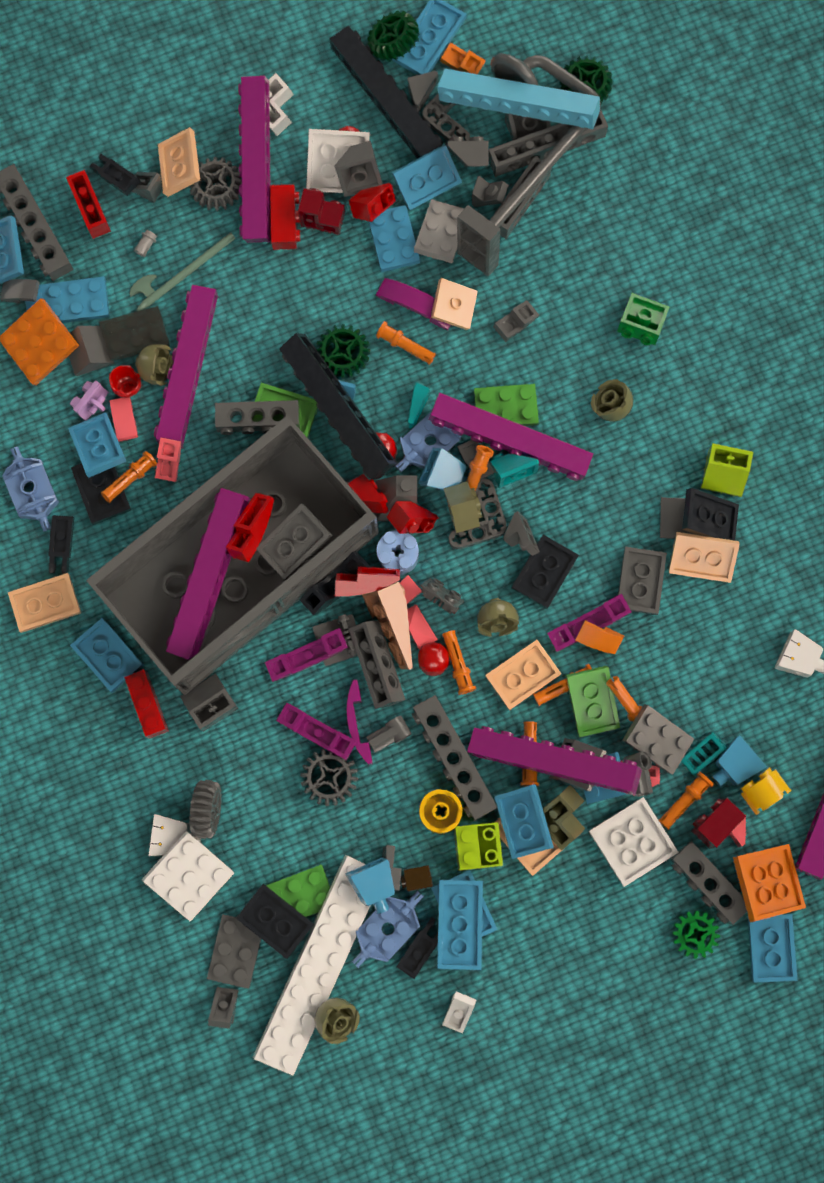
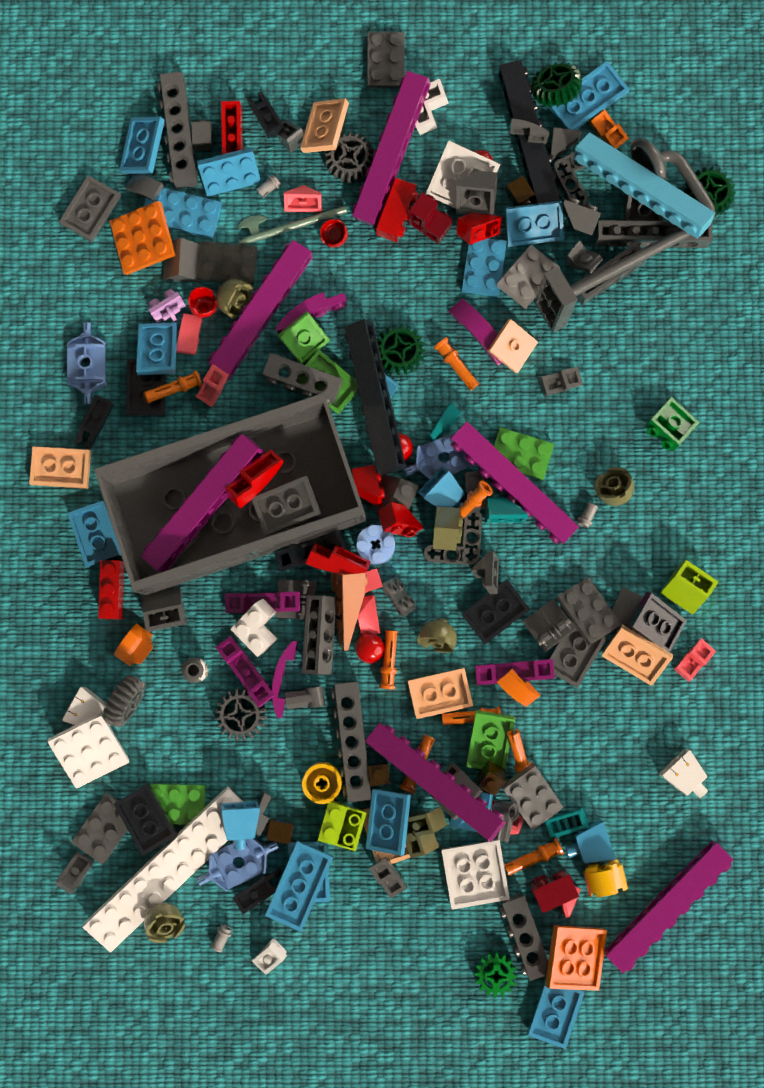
camera: 20 degrees right, 5 degrees up
(59, 219) = (202, 135): none -> dark grey brick
(101, 243) = (229, 171): none -> dark azure plate
(185, 243) = (302, 200): none -> coral slope
(193, 752) = (135, 646): none -> orange slope
(213, 76) = (385, 60): none -> dark grey plate
(230, 263) = (333, 233): none -> red hair
(231, 354) = (315, 306): none -> magenta slope
(241, 376) = (303, 337): none -> bright green plate
(264, 750) = (194, 670): none -> dark grey head
(305, 684) = (251, 628): none -> white brick
(390, 89) = (535, 132): none -> dark grey slope
(399, 152) = (520, 192): none -> dark brown brick
(401, 1013) = (223, 933): none -> light grey pin
(495, 779) = (379, 774): none -> dark brown brick
(546, 880) = (388, 877): none -> dark grey slope
(597, 440) = (587, 515): none -> light grey pin
(604, 563) = (549, 625): none -> dark grey hinge
(609, 736) = (491, 778): none -> dark brown brick
(637, 533) = (588, 611): none -> dark grey plate
(763, 540) = (694, 660): none -> coral slope

